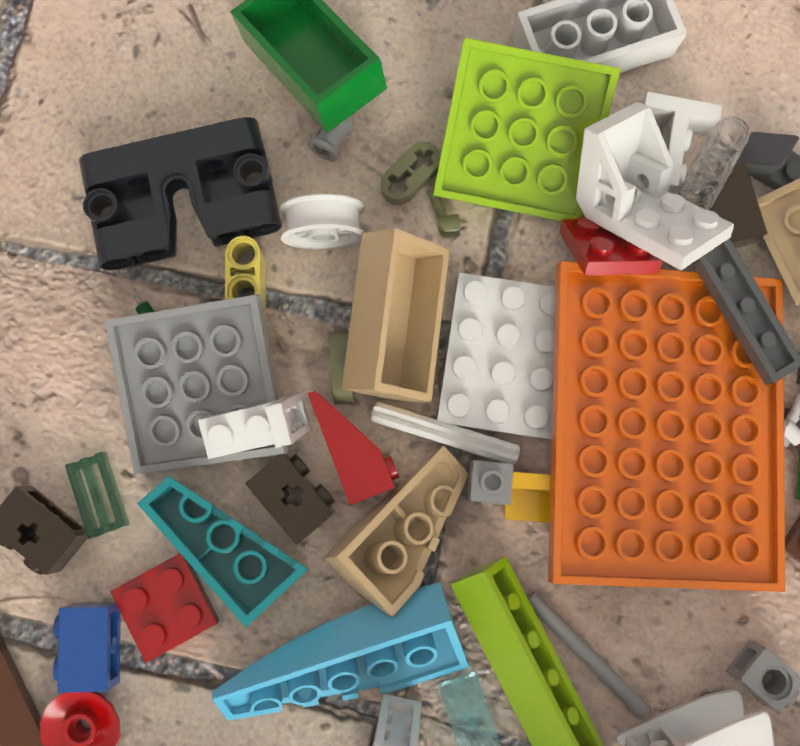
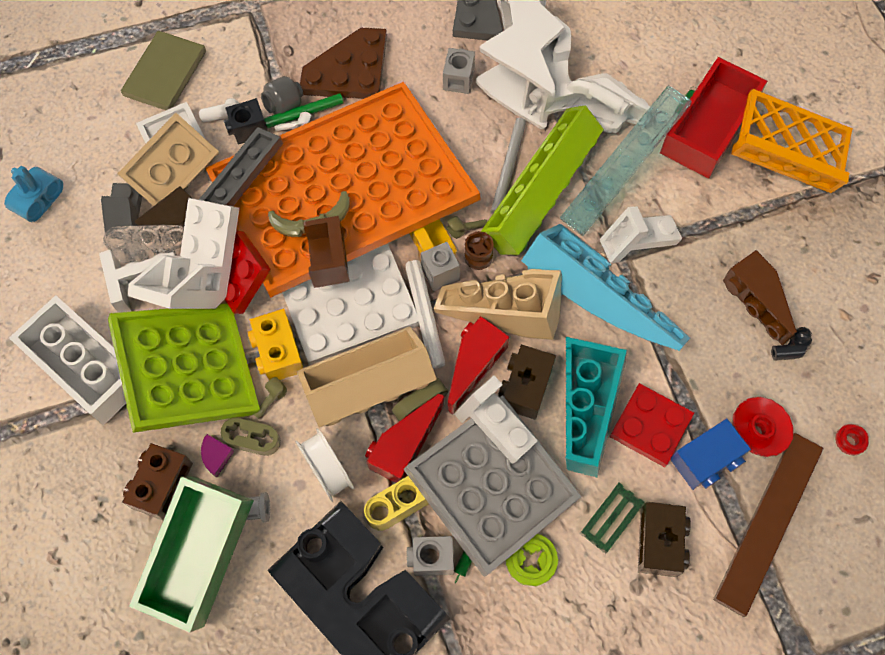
camera: 120 degrees left, 15 degrees down
(92, 374) = (547, 562): none -> lime gear
(154, 284) = (442, 545): none -> light grey brick
(303, 315) = (403, 441): none -> red slope
(412, 128) = (215, 454): none -> magenta tile
(413, 57) = (156, 481): none -> reddish brown brick
(491, 542) = (475, 245): none -> reddish brown wheel
(498, 247) = (275, 345): none -> yellow brick
(532, 536) = (458, 229): none -> olive hand
(569, 350) = (326, 252): none -> reddish brown panel
(617, 379) = (296, 228): none -> olive piece

